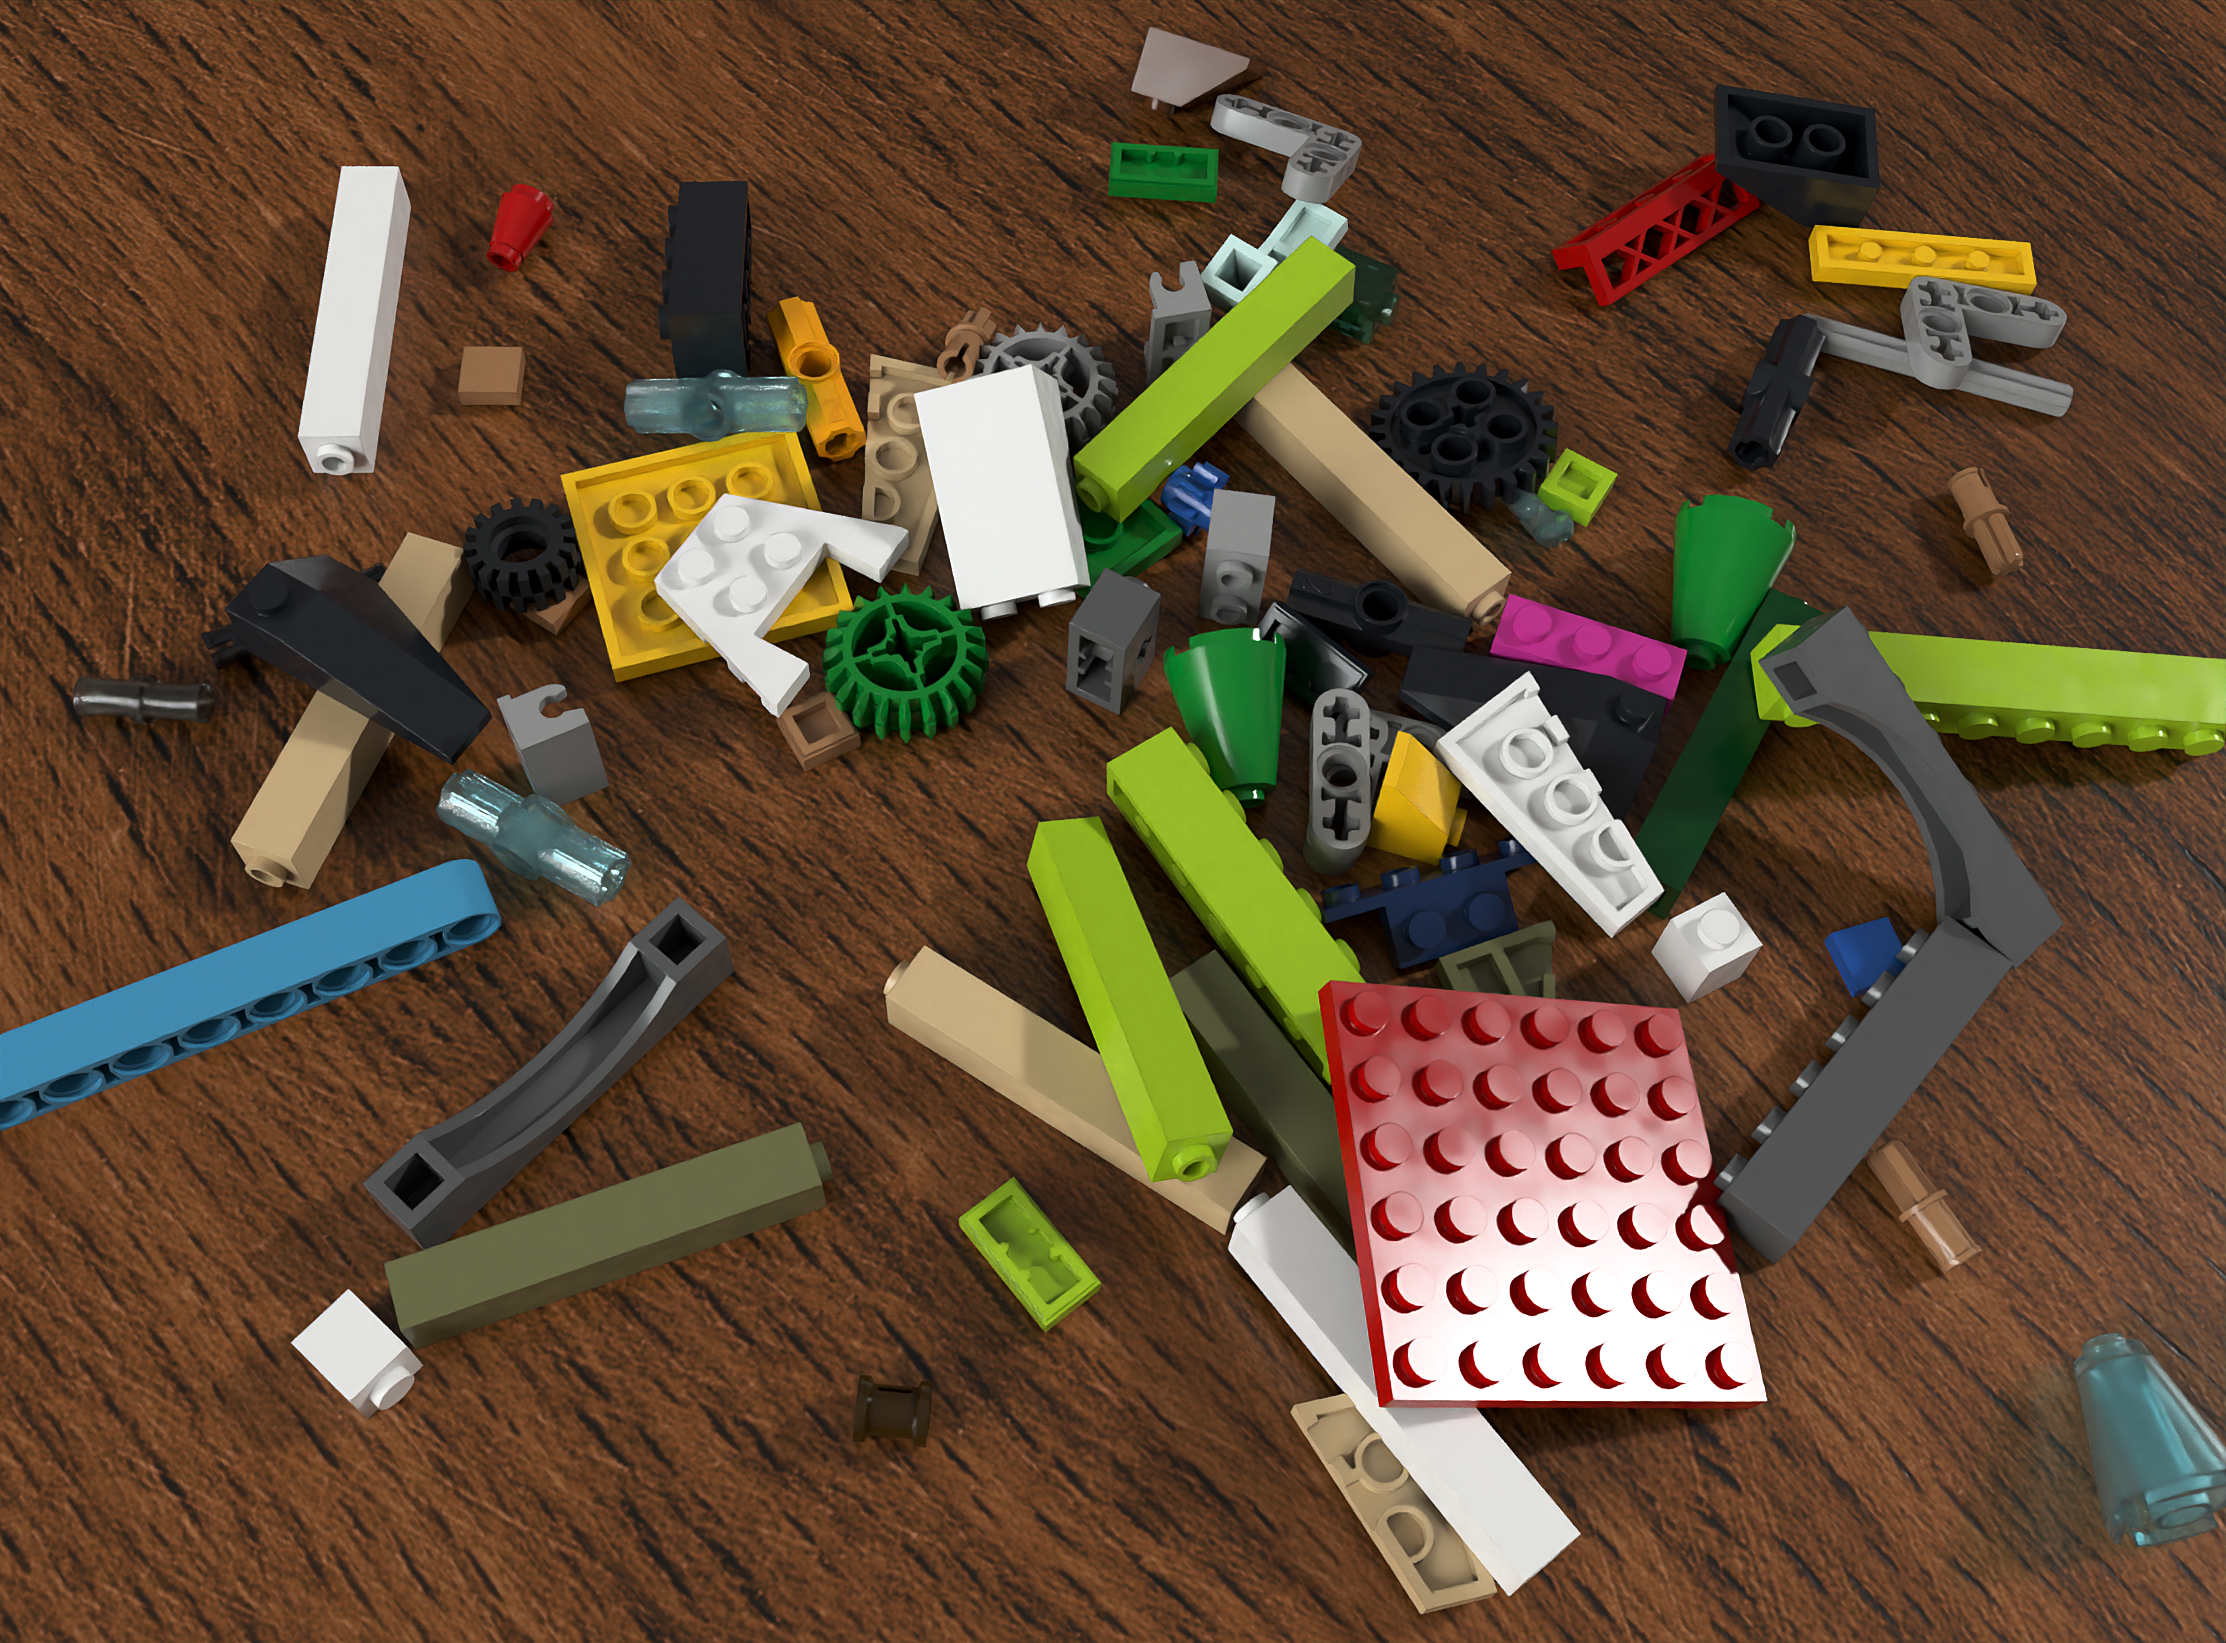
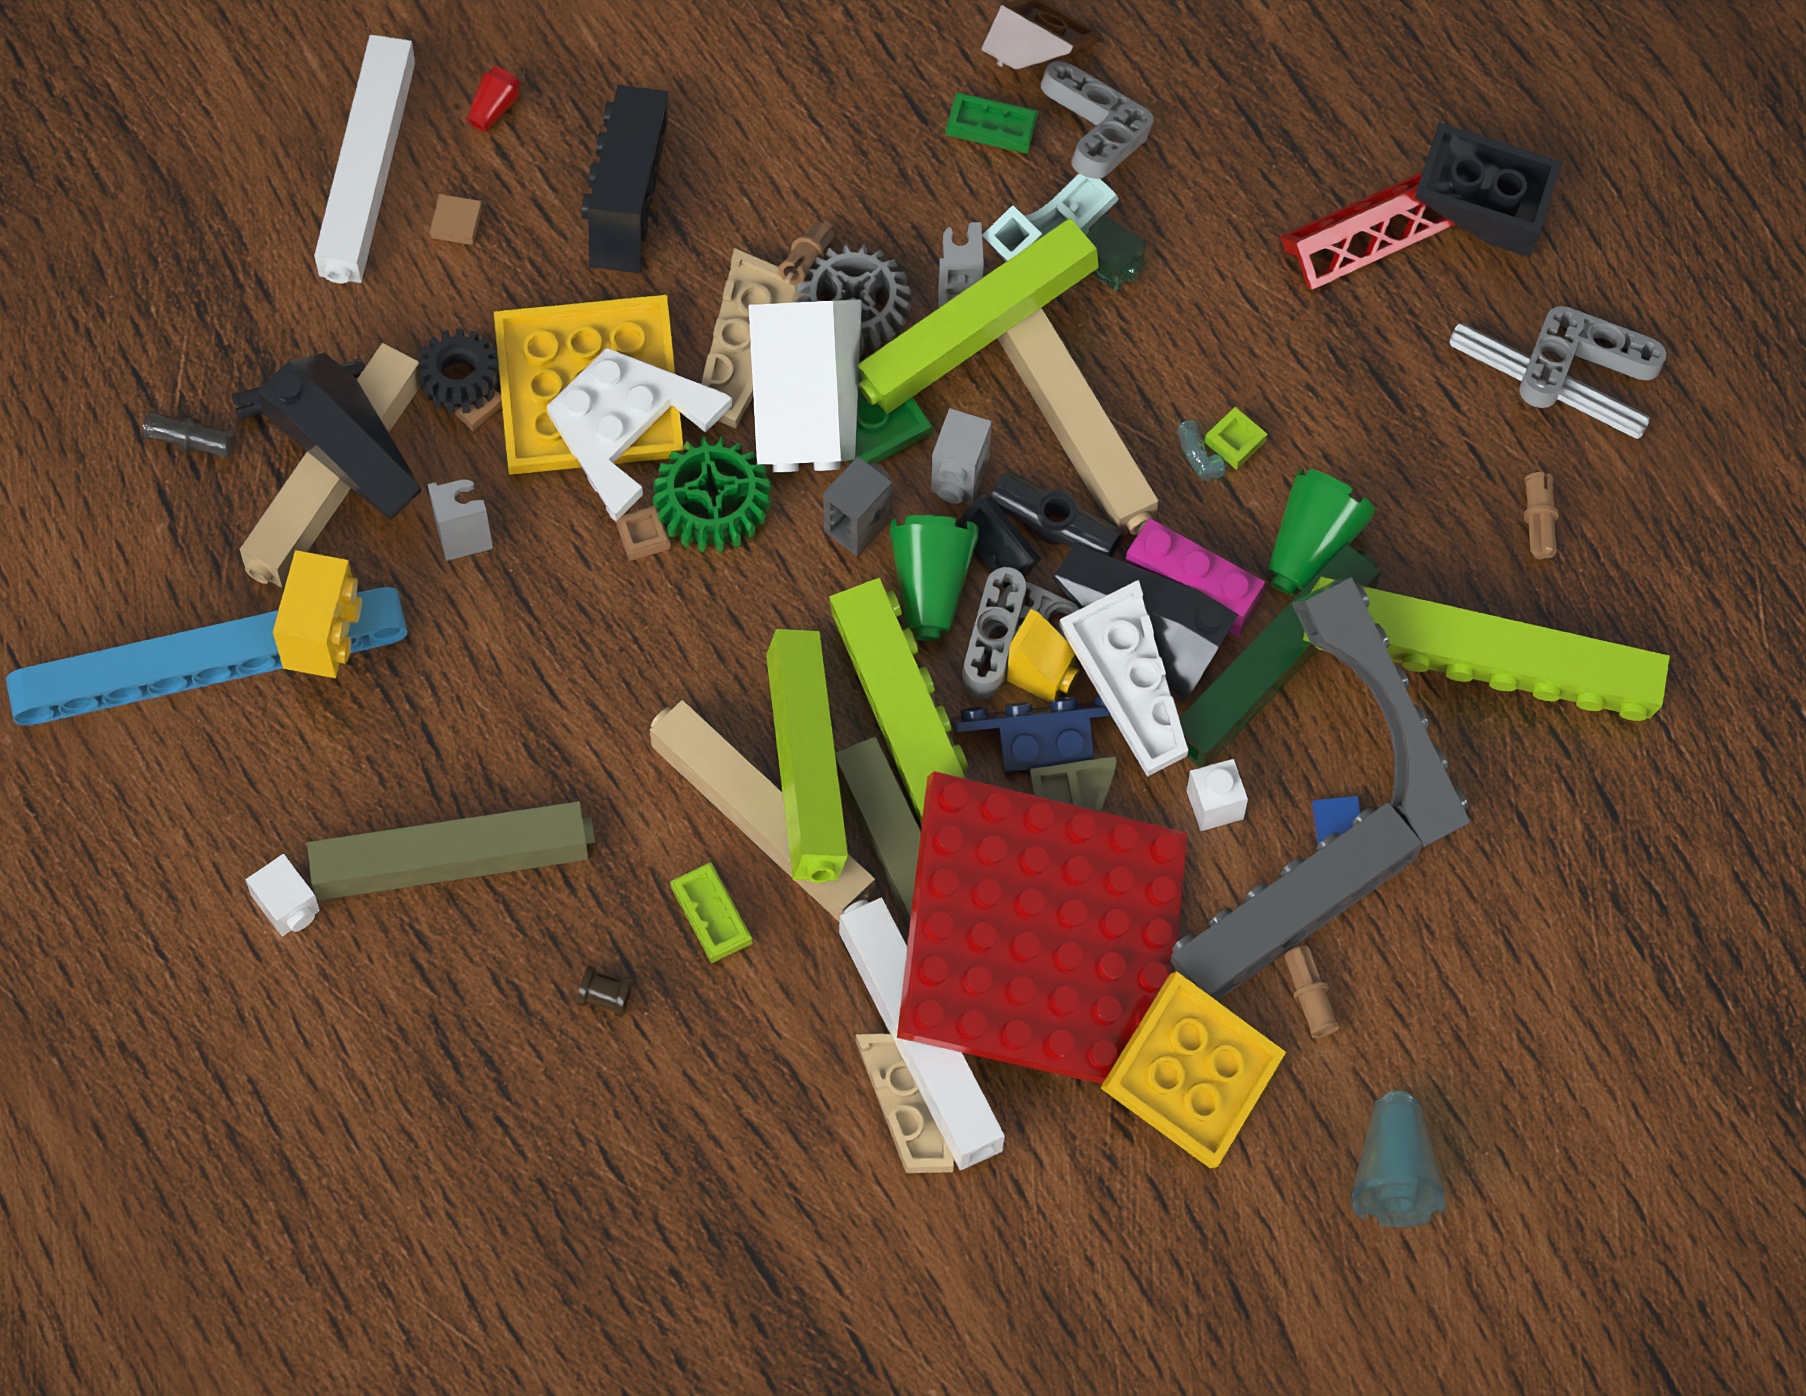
camera: 15 degrees right, 5 degrees up
(351, 911) = (317, 614): none -> yellow brick
(469, 1158) = (372, 783): dark grey arch -> none
(533, 837) = (436, 578): clear light blue piece -> none
(745, 403) = (613, 275): clear light blue piece -> none
(816, 364) = (692, 281): light orange piece -> none
(1191, 496) = (944, 395): blue gear -> none
(1467, 435) = (1169, 375): black gear -> none
(1776, 393) = (1414, 385): black piece -> none
(1810, 1363) = (1193, 1070): none -> yellow plate
(1898, 257) = (1554, 285): yellow plate -> none

